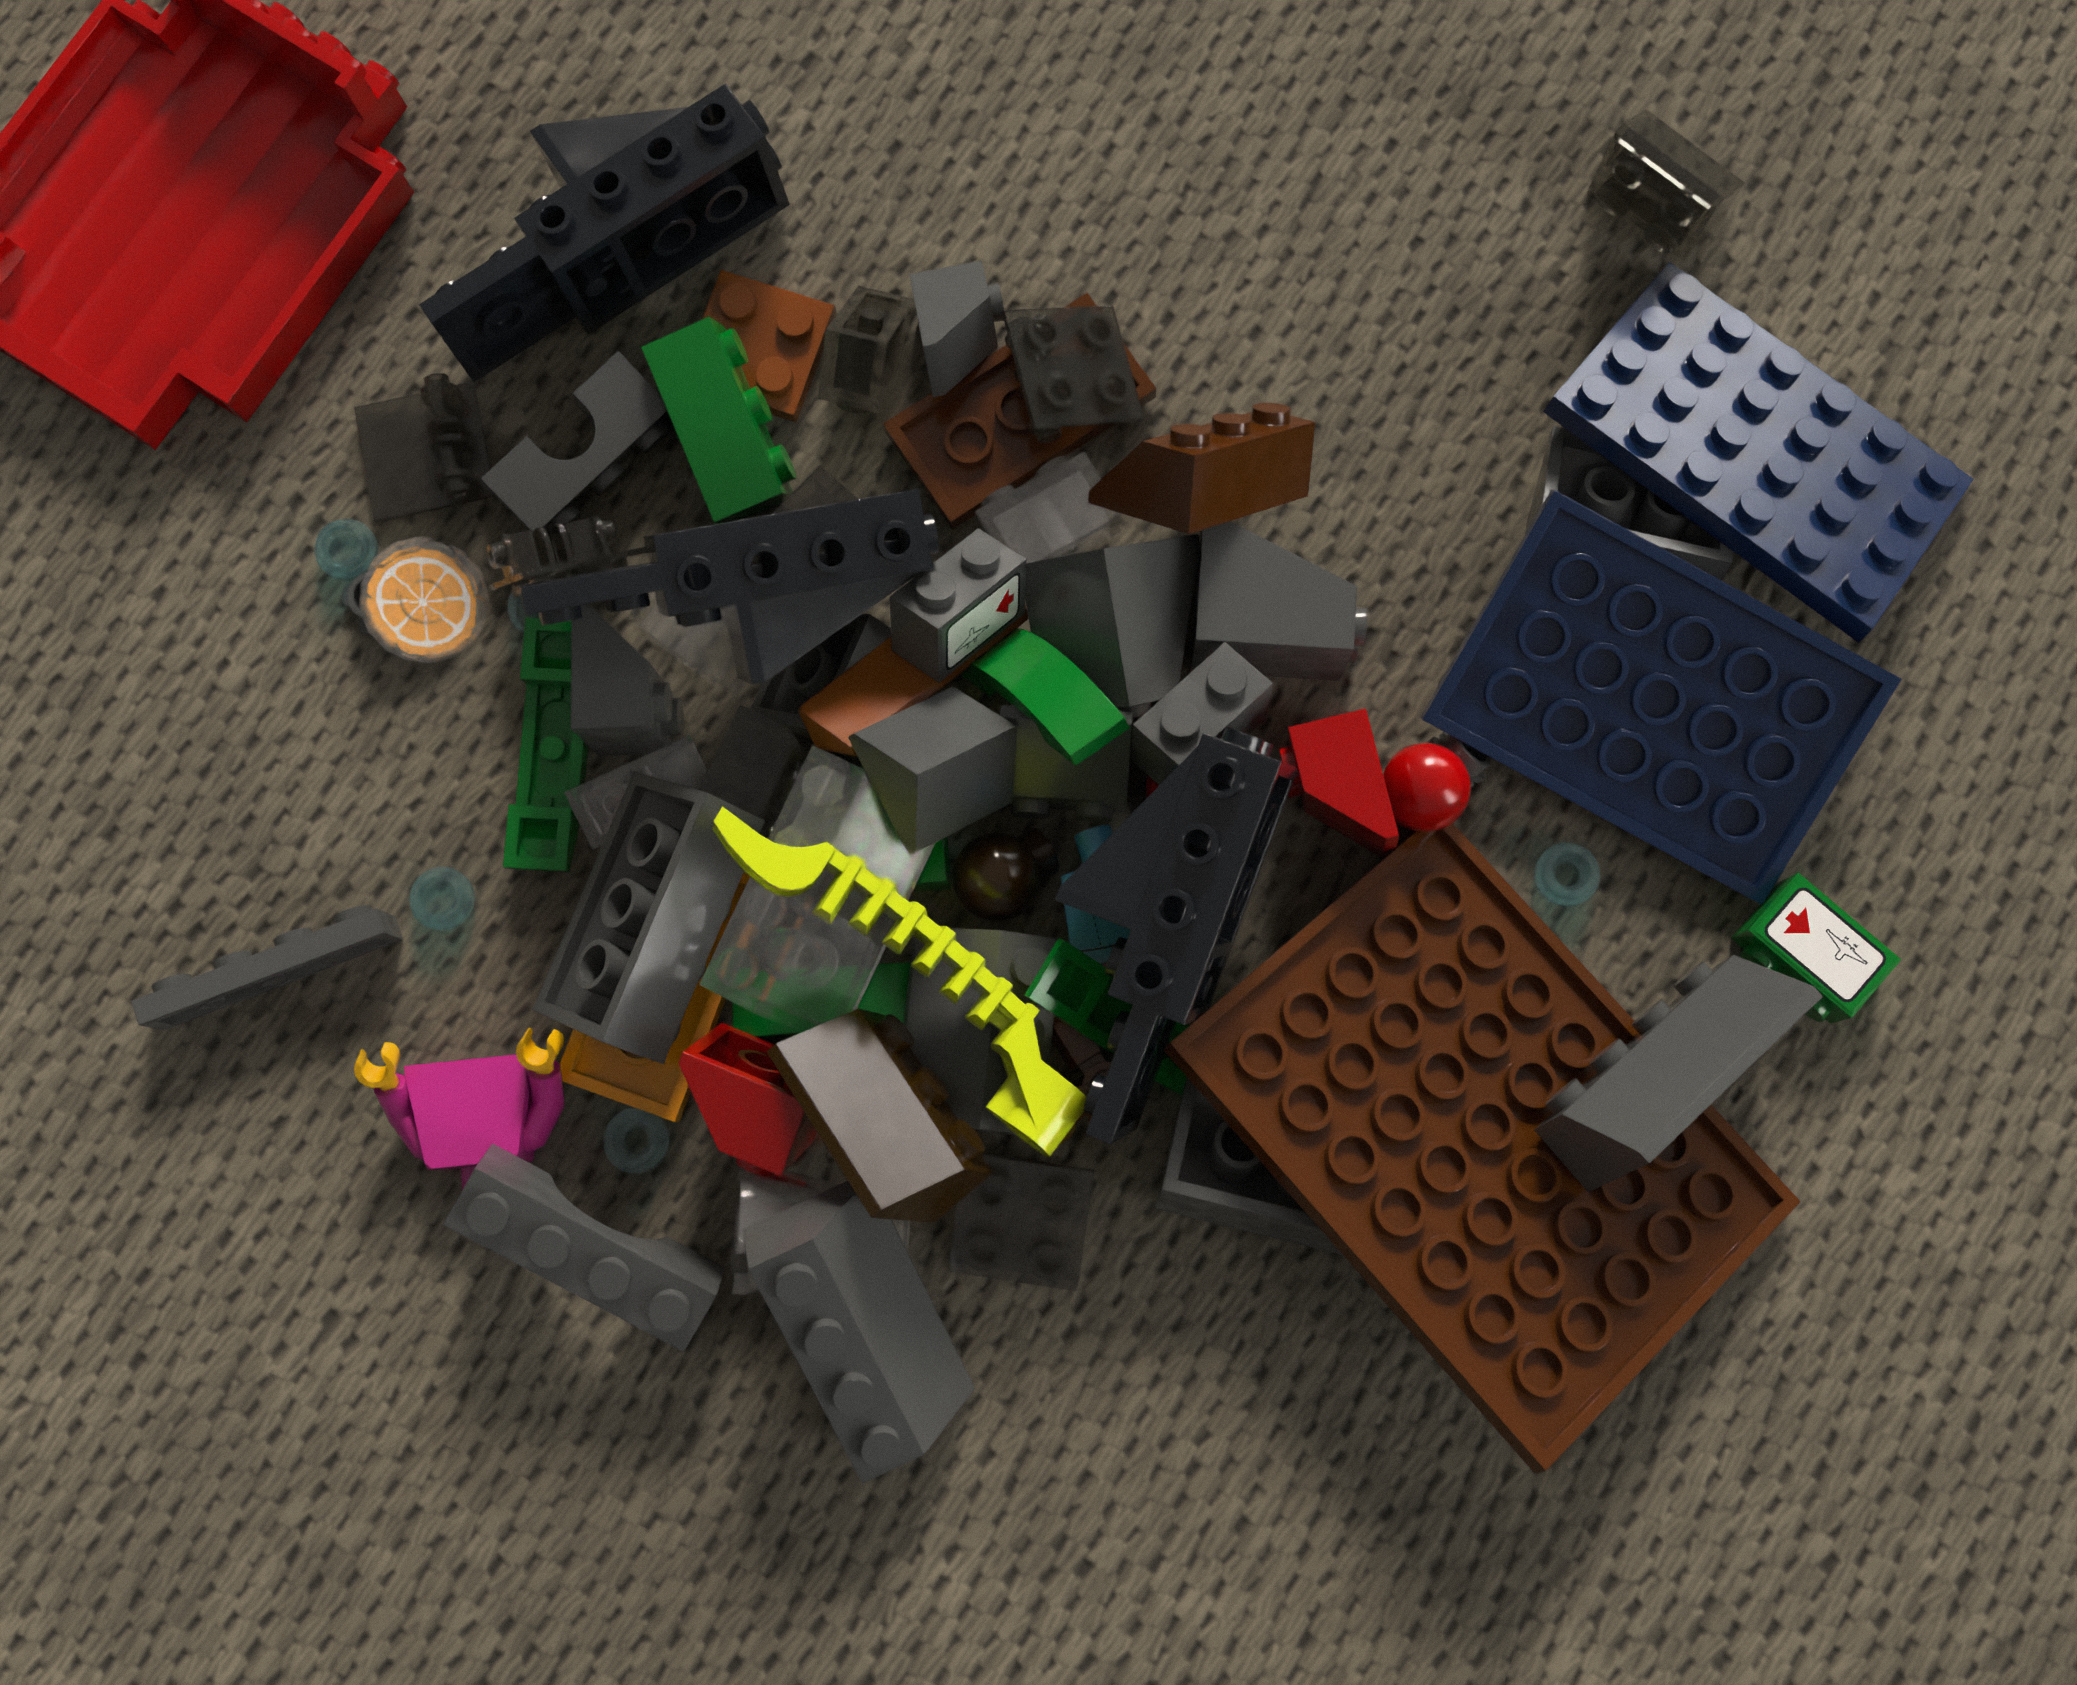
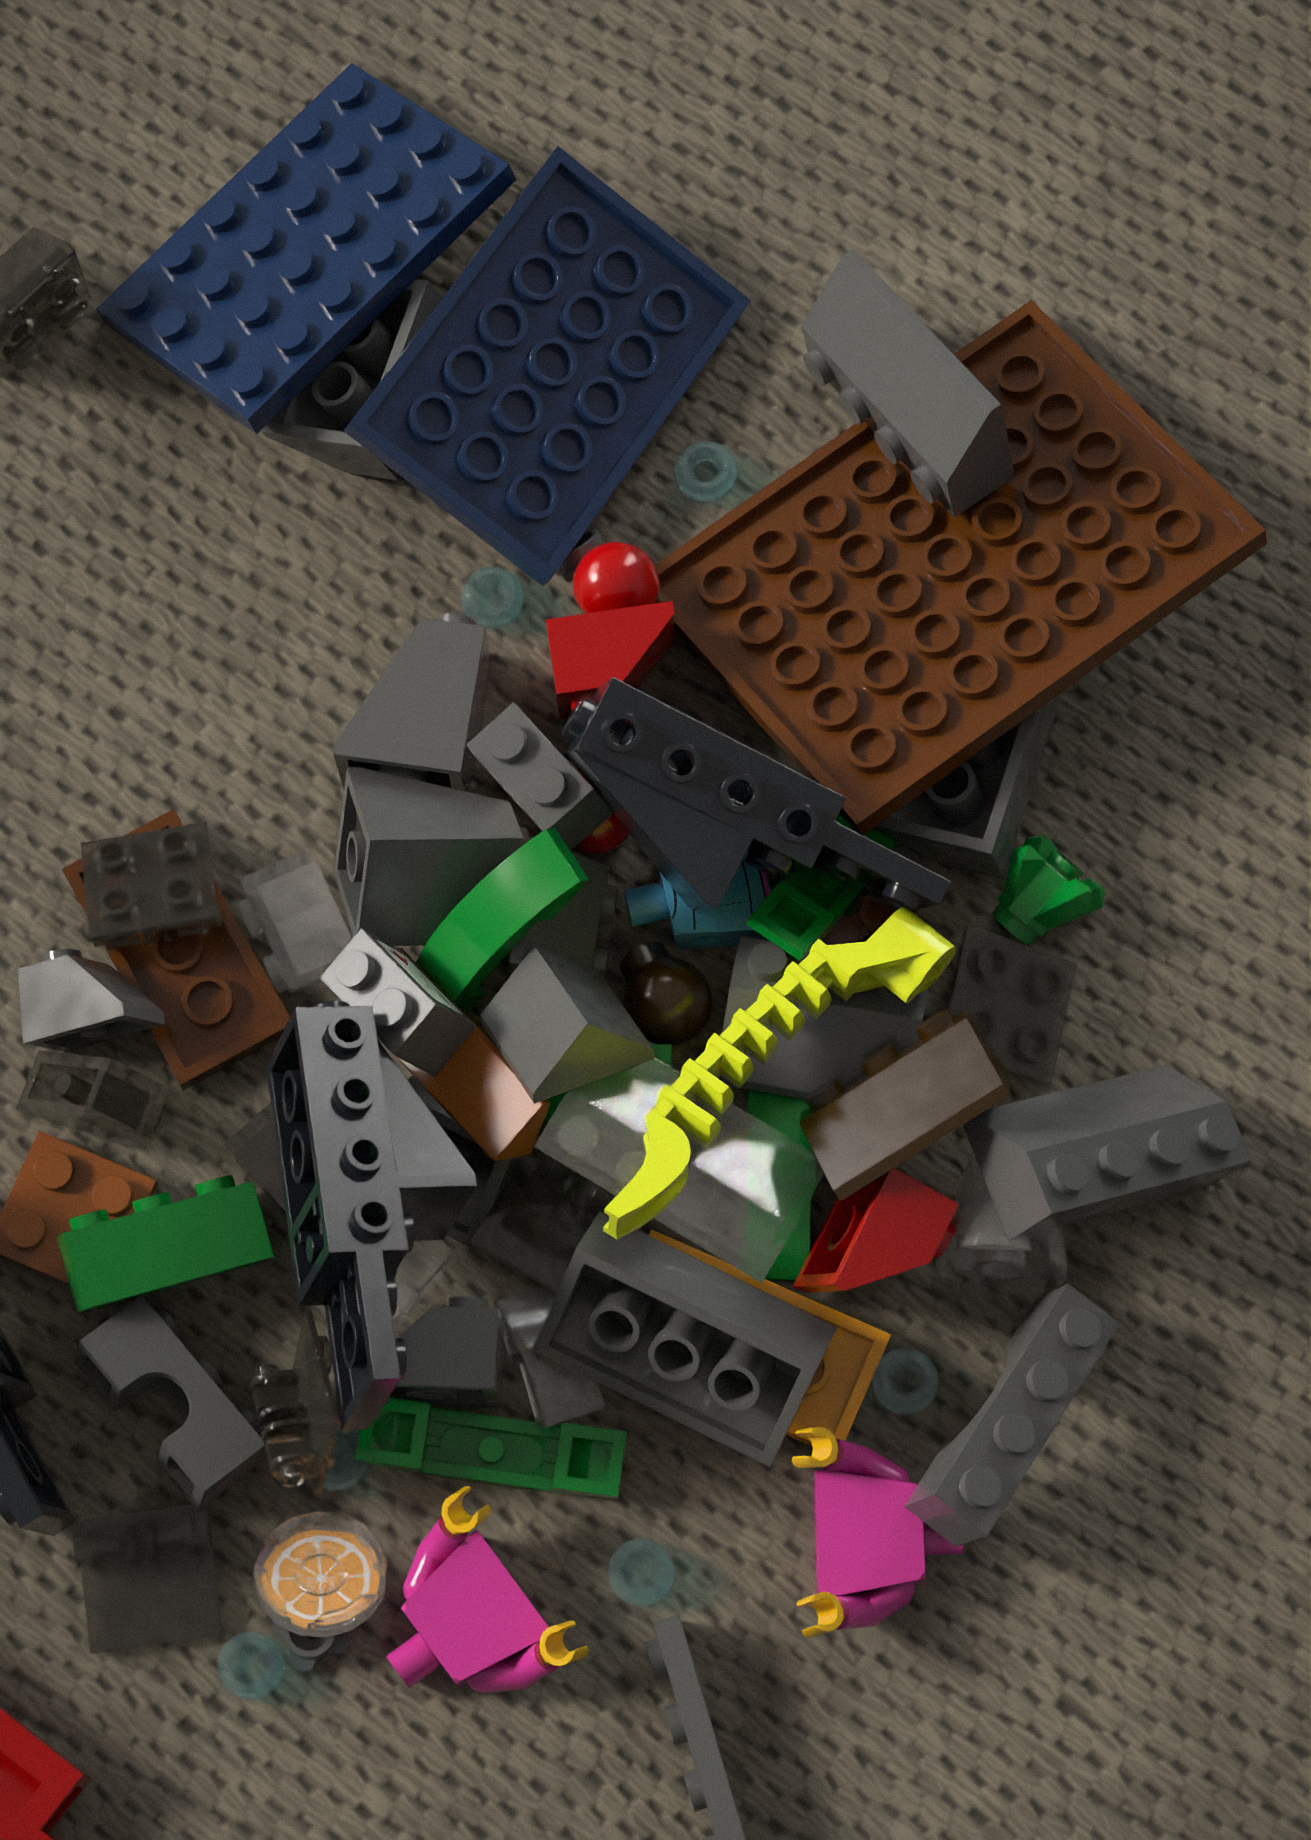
camera: 90 degrees left, 5 degrees down
(388, 745) = (473, 1613): none -> dark pink torso
(1143, 1251) = (1043, 891): none -> green rock
(1213, 470) = (290, 744): reddish brown slope -> none
(1408, 673) = (492, 597): none -> clear light blue plate
(1816, 943) = (794, 258): brick -> none

